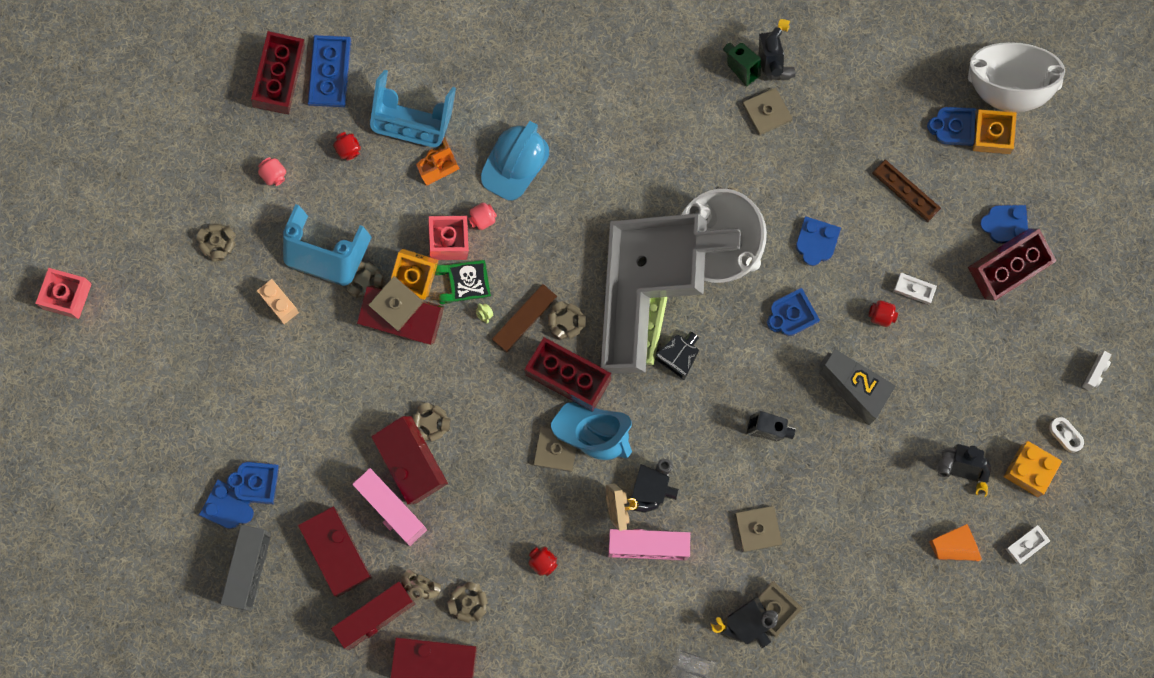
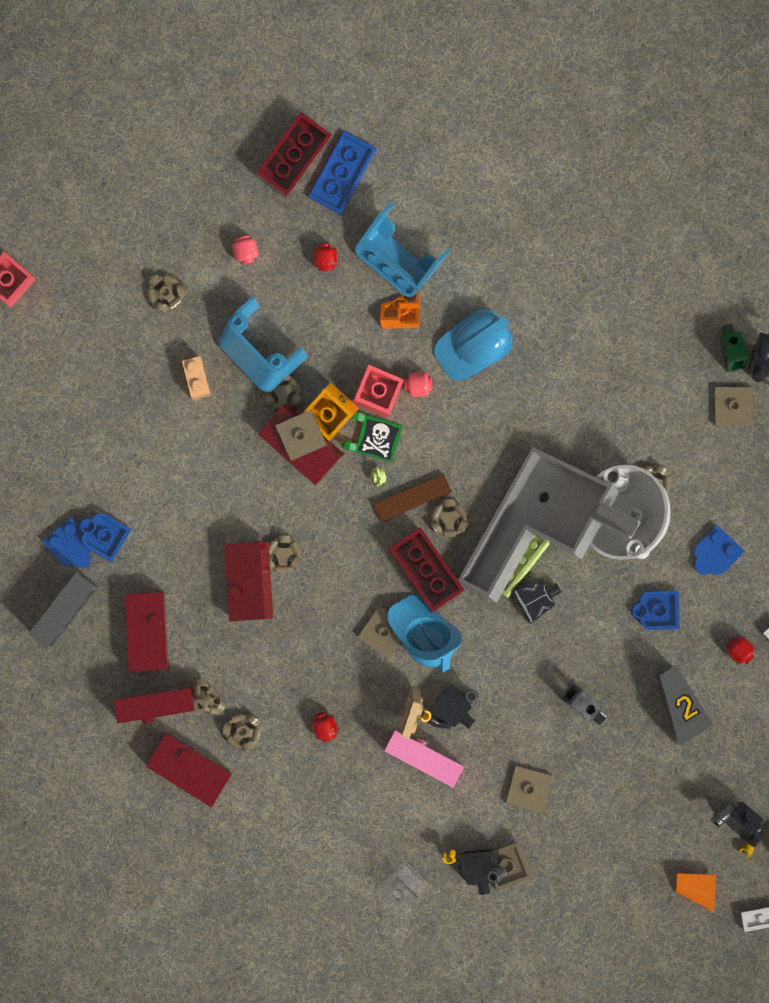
camera: 25 degrees right, 10 degrees up
(390, 507) = (212, 616): bright pink brick -> none

